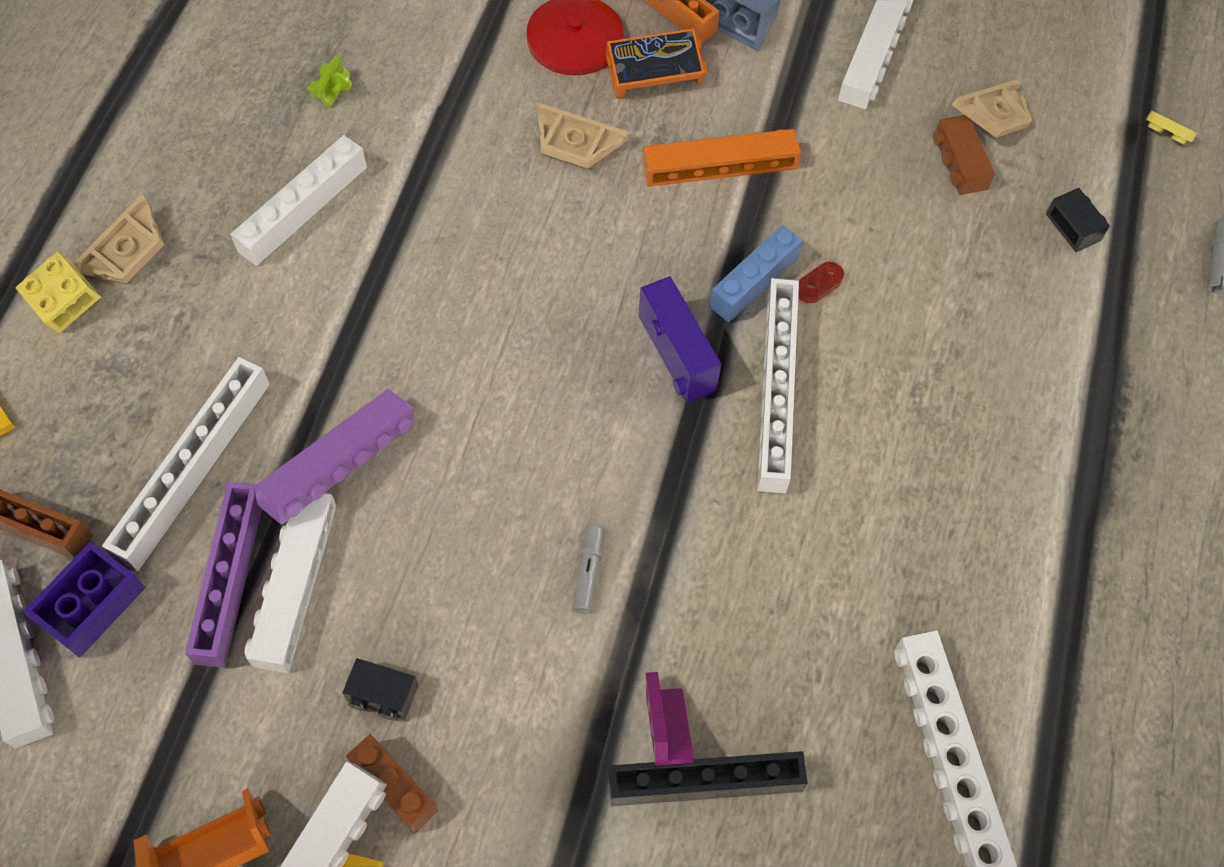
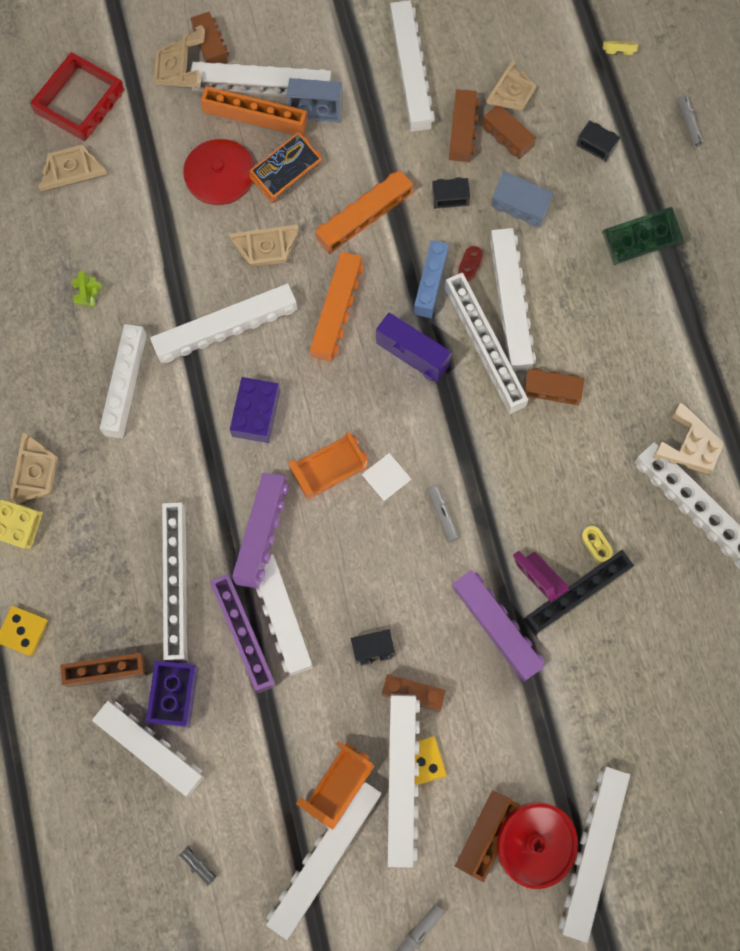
camera: 25 degrees left, 10 degrees up
(432, 312) = (255, 410): none -> dark purple brick
(464, 197) = (224, 323): none -> white brick
(478, 429) = (329, 466): none -> orange panel
(545, 483) = (386, 477): none -> white sticker
(567, 762) = (498, 626): none -> medium lavender brick
(614, 246) = (336, 307): none -> orange brick
(775, 729) = (596, 545): none -> light yellow plate
(838, 486) = (554, 386): none -> dark orange brick
(844, 188) = (450, 193): none -> black piece
(845, 352) = (511, 299): none -> white brick
(907, 121) = (462, 126): none -> dark orange brick
(933, 237) = (522, 199): none -> sand blue slope
(1001, 675) = (700, 445): none -> tan wing
(1073, 356) = (642, 236): none -> clear green windscreen

